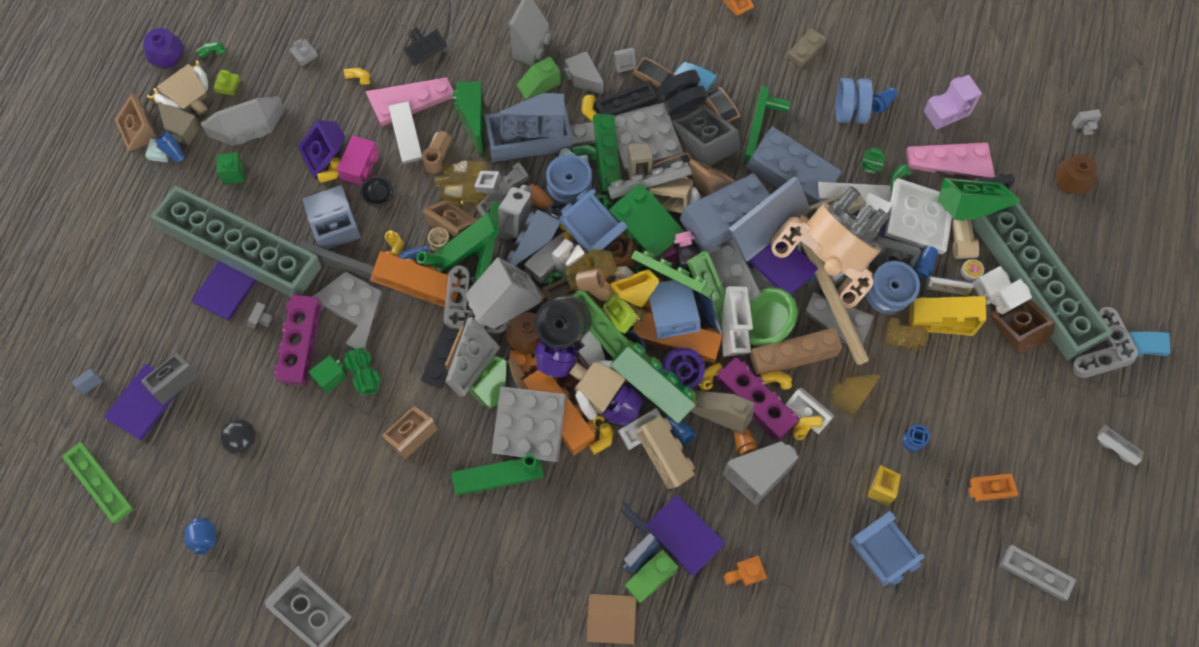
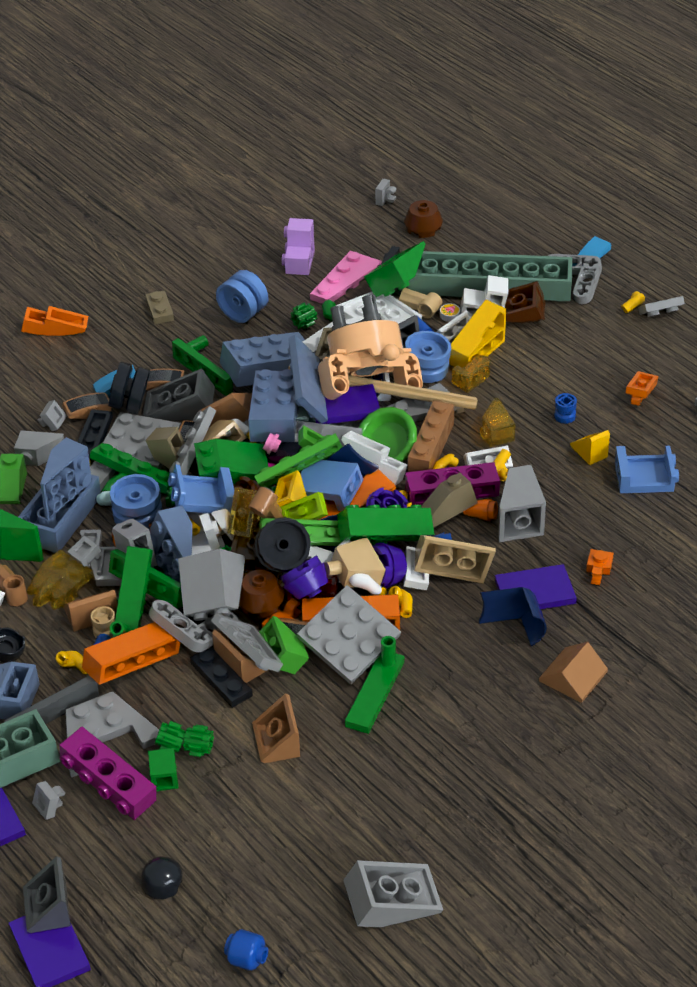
camera: 55 degrees left, 25 degrees down
(651, 576) = (558, 620): bright green slope -> none
(1116, 418) = (636, 300): none -> yellow arm

